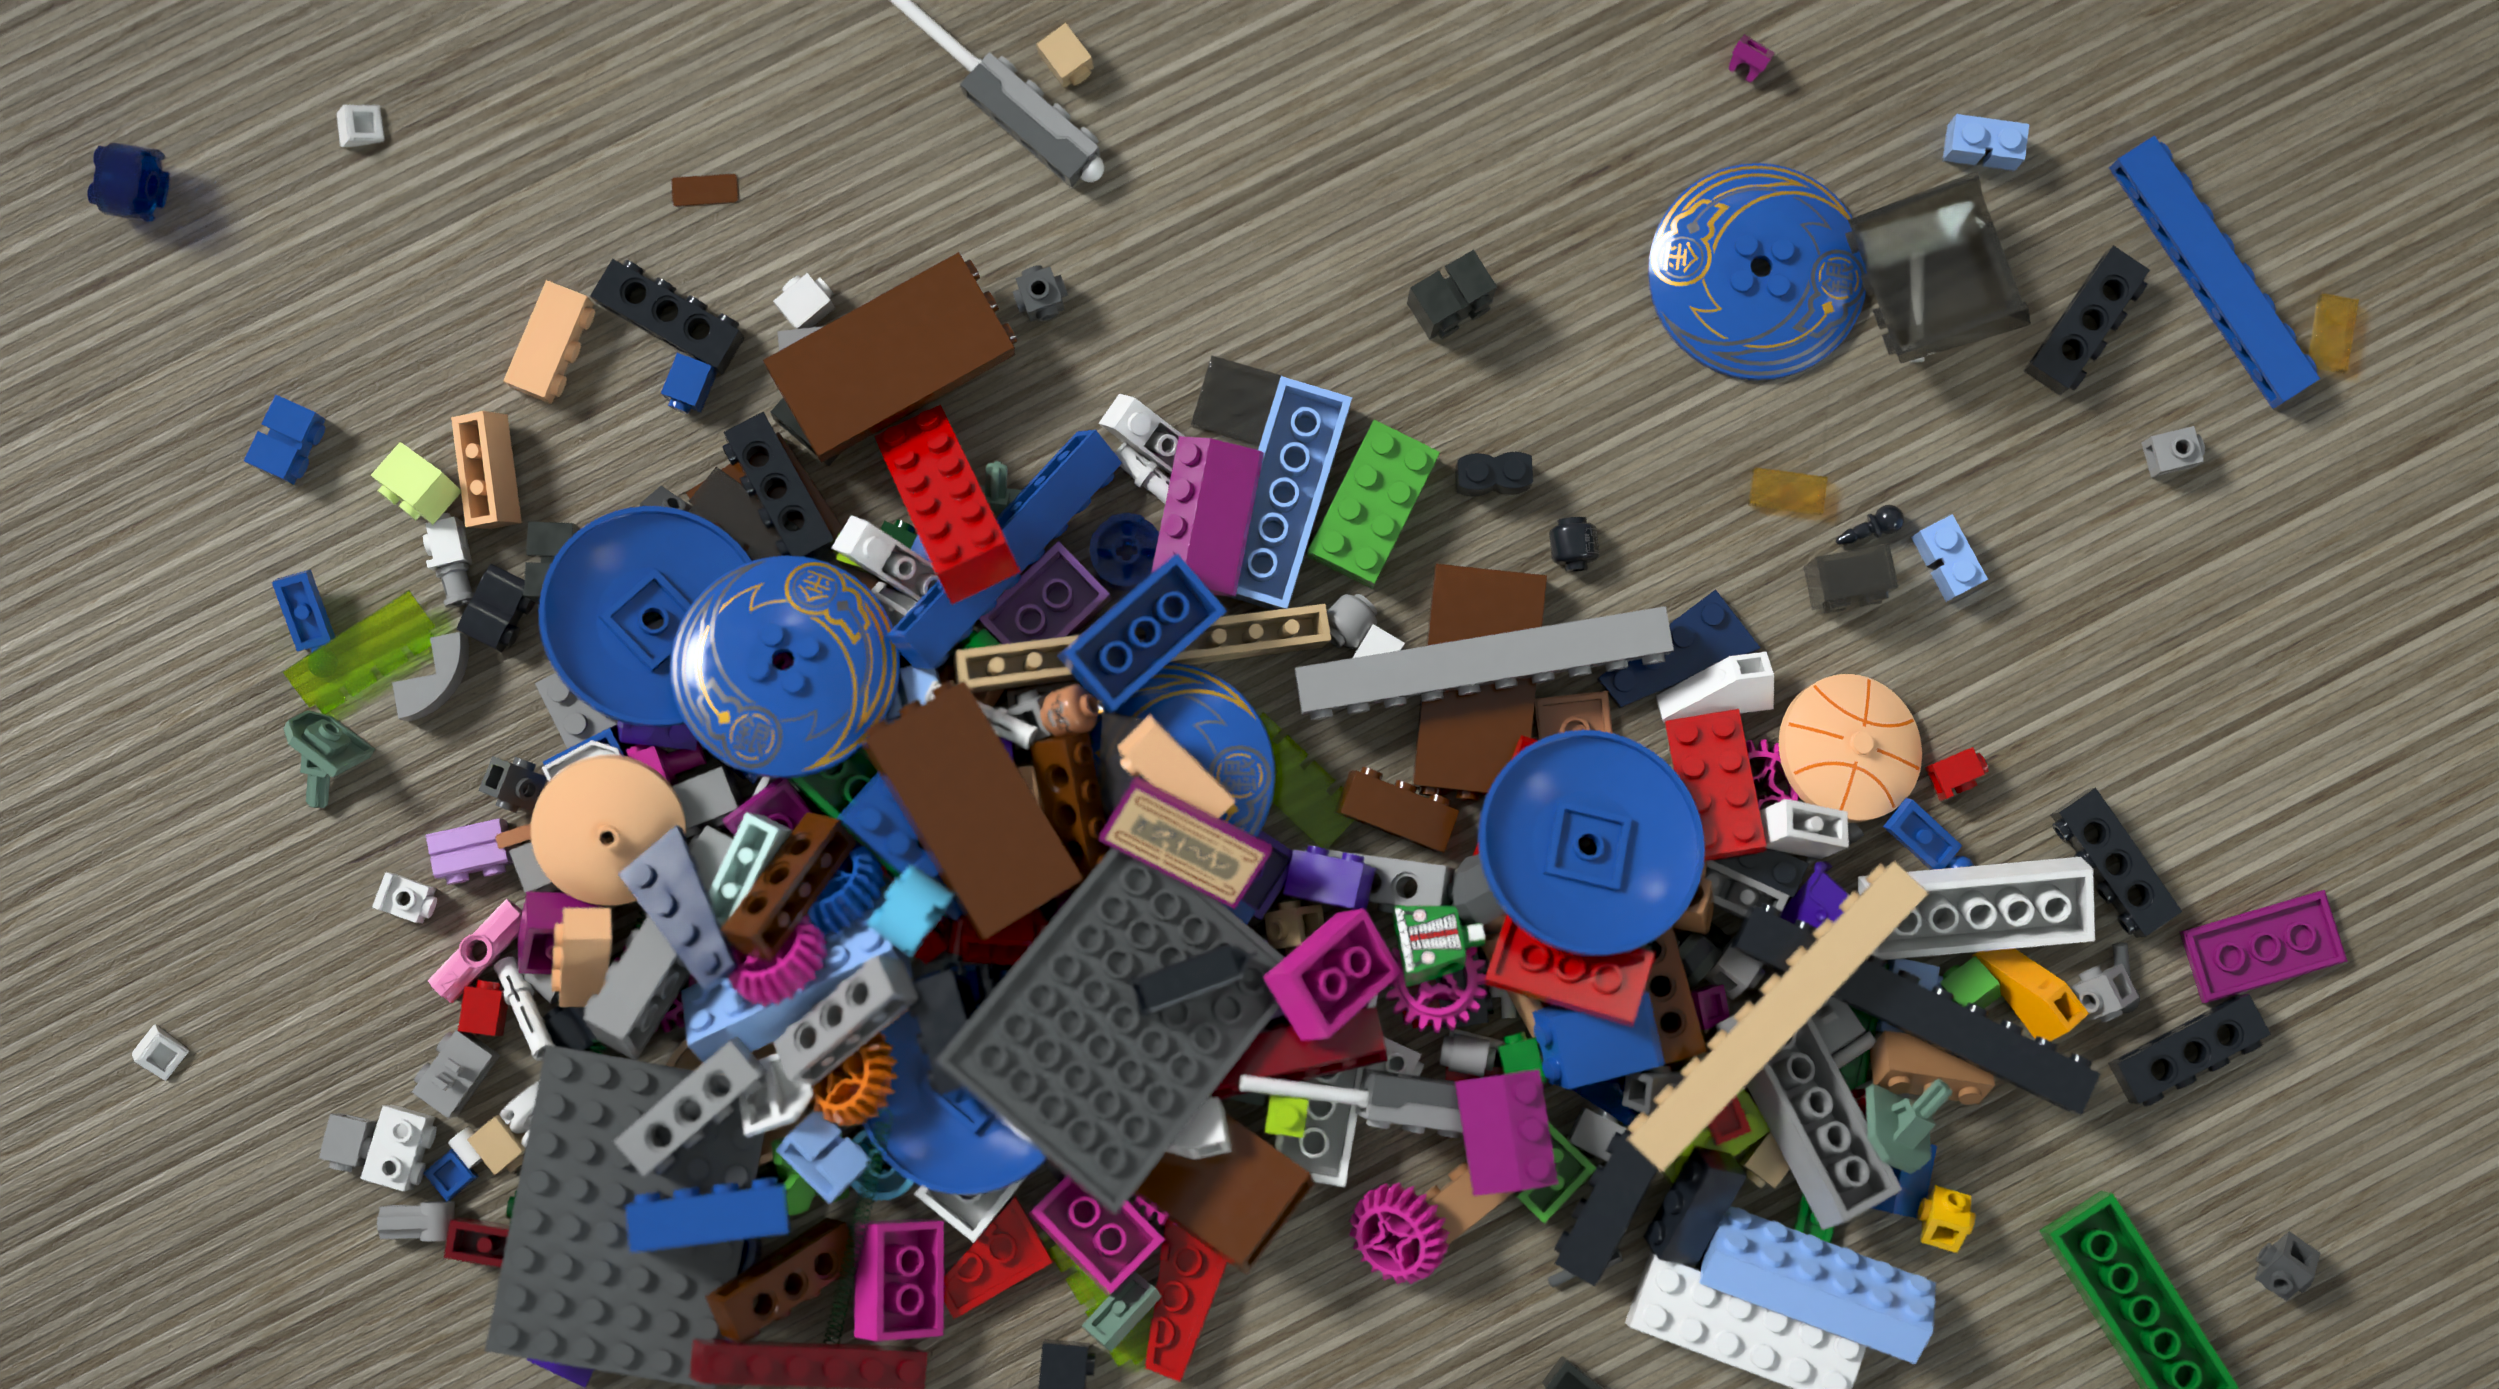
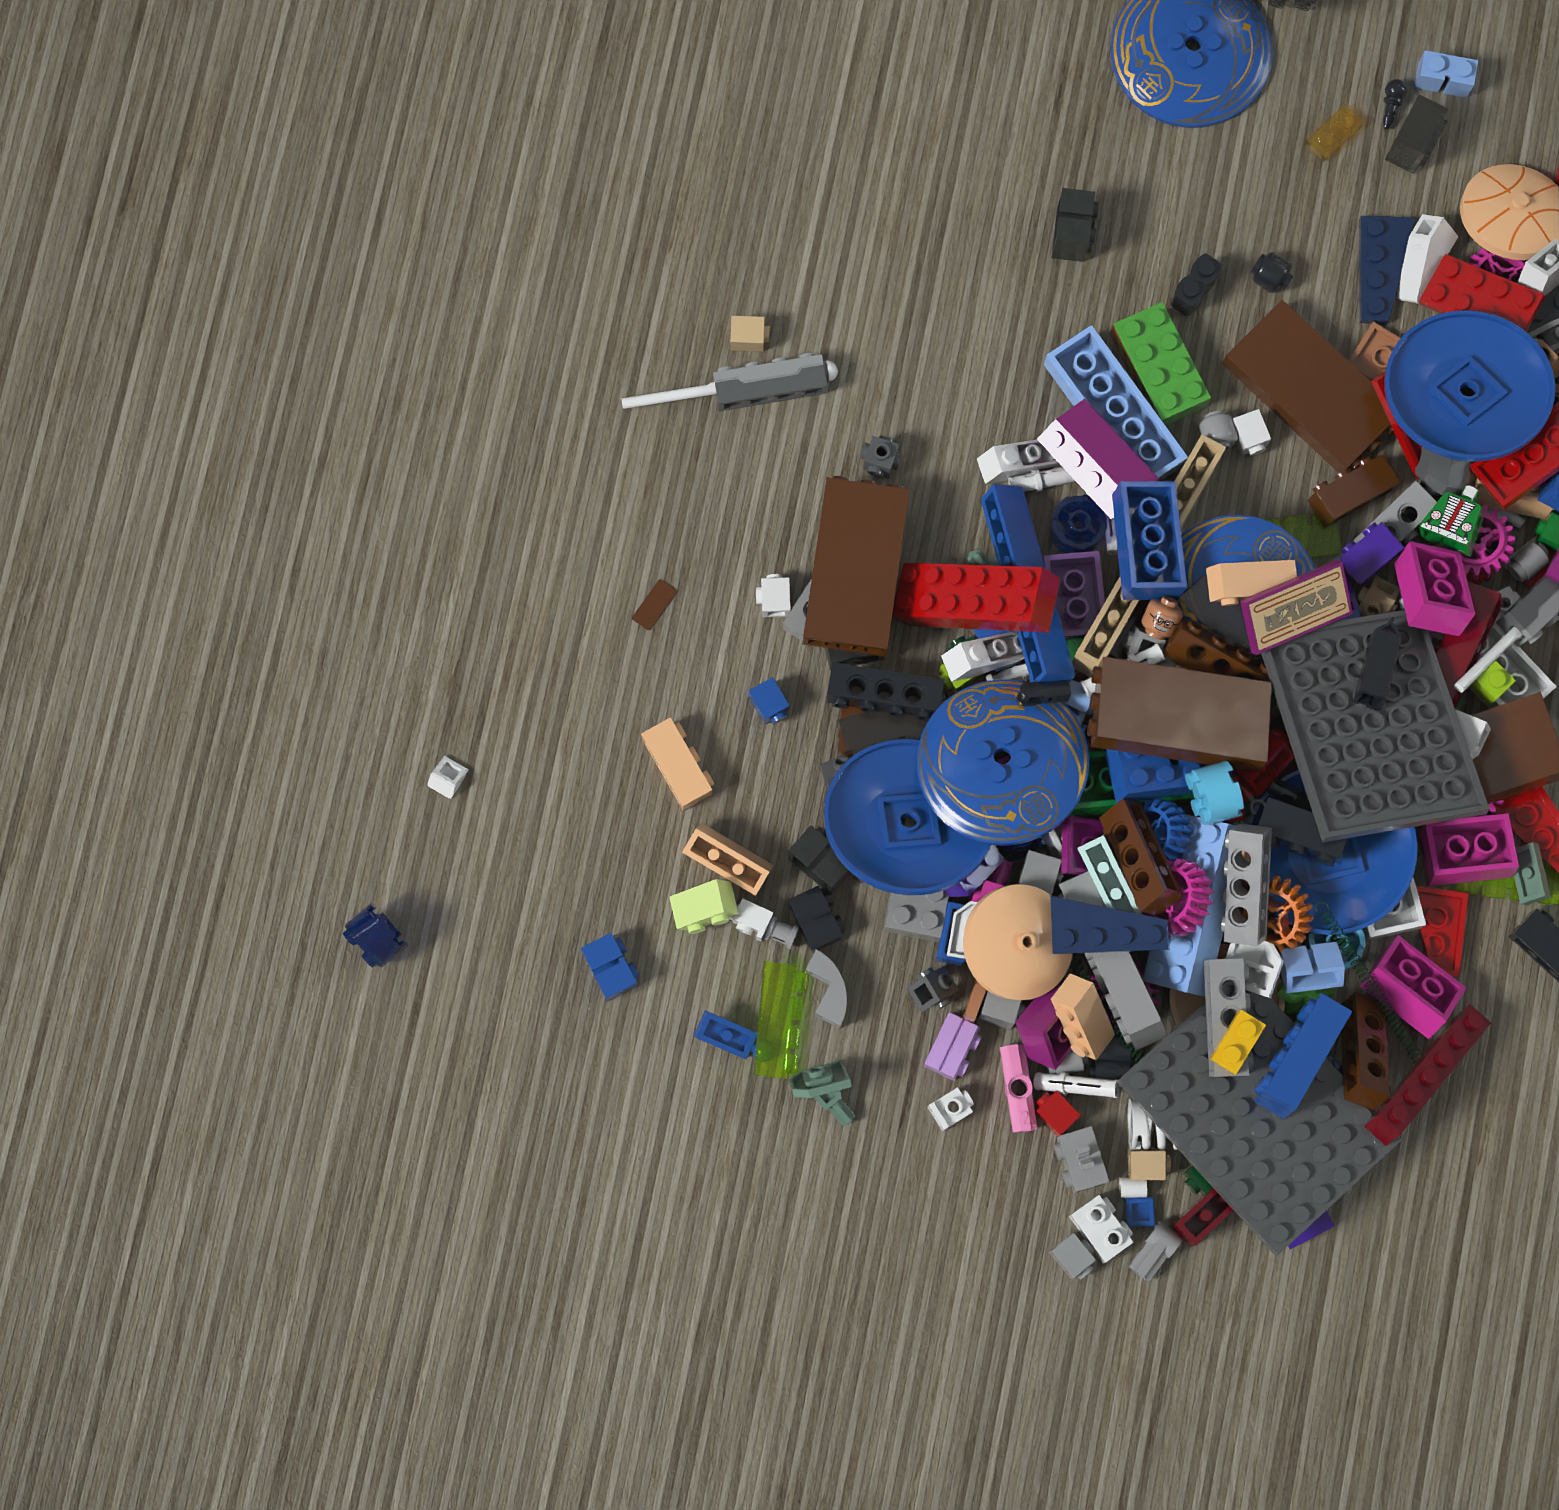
camera: 55 degrees left, 5 degrees down
(159, 1052) = (926, 1333): white slope -> none
(614, 294) = (682, 705): black brick -> none
(665, 1137) = (1237, 1042): none -> yellow plate
(887, 650) = (1045, 692): none -> black bar
(1235, 400) = (1033, 397): clear smoke tile -> none
(1484, 661) = (1307, 371): light grey brick -> none

